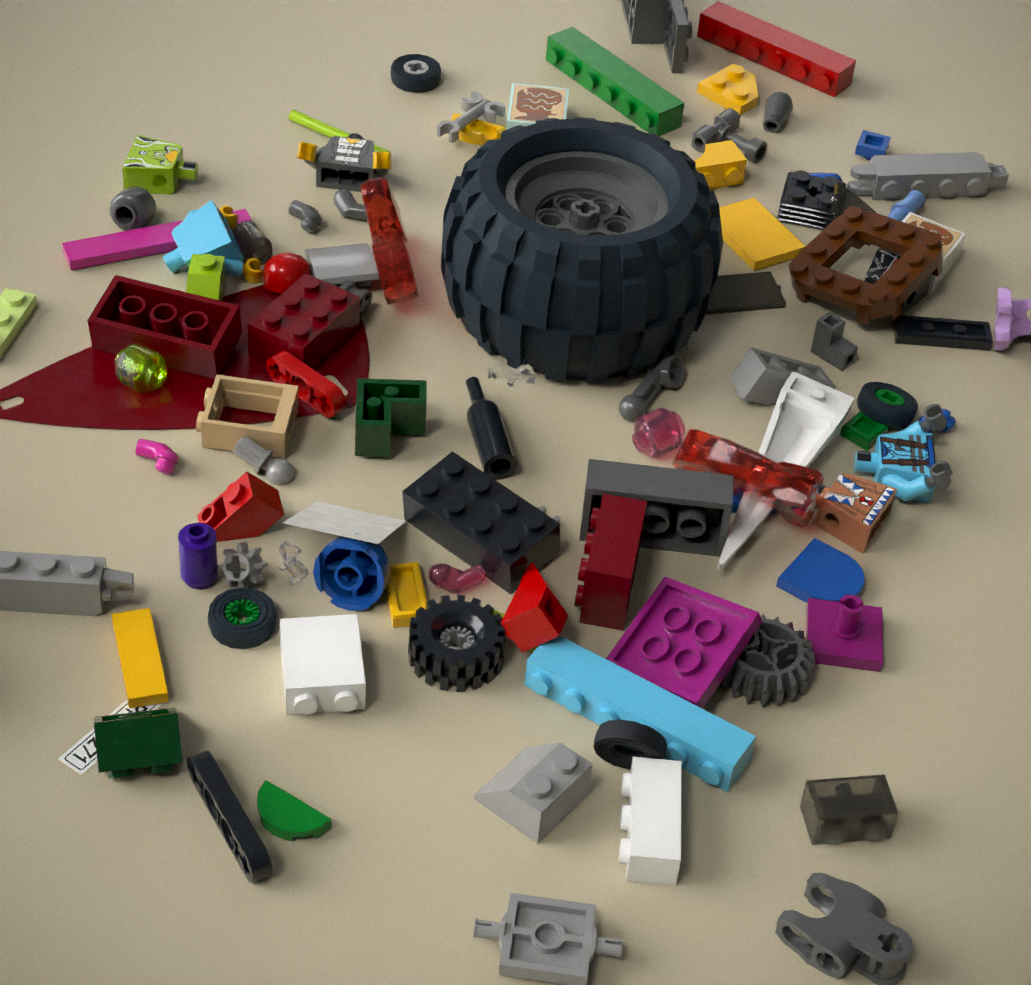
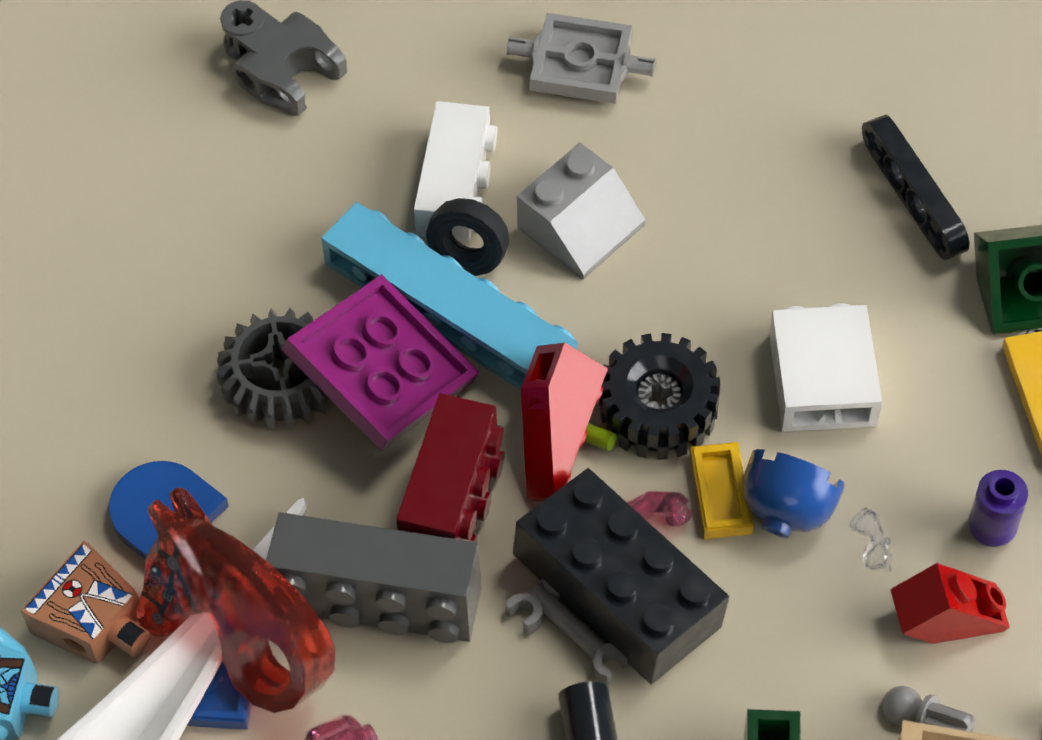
camera: 170 degrees left, 15 degrees up
(232, 565) = (936, 510): light grey gear -> none
(238, 602) = (946, 437): black bush -> none
(288, 816) = (849, 196): green tile -> none
(345, 522) = (806, 556): white sticker -> none
(845, 633) = (163, 420): magenta tile -> none
(848, 809) = (234, 178): clear smoke brick -> none

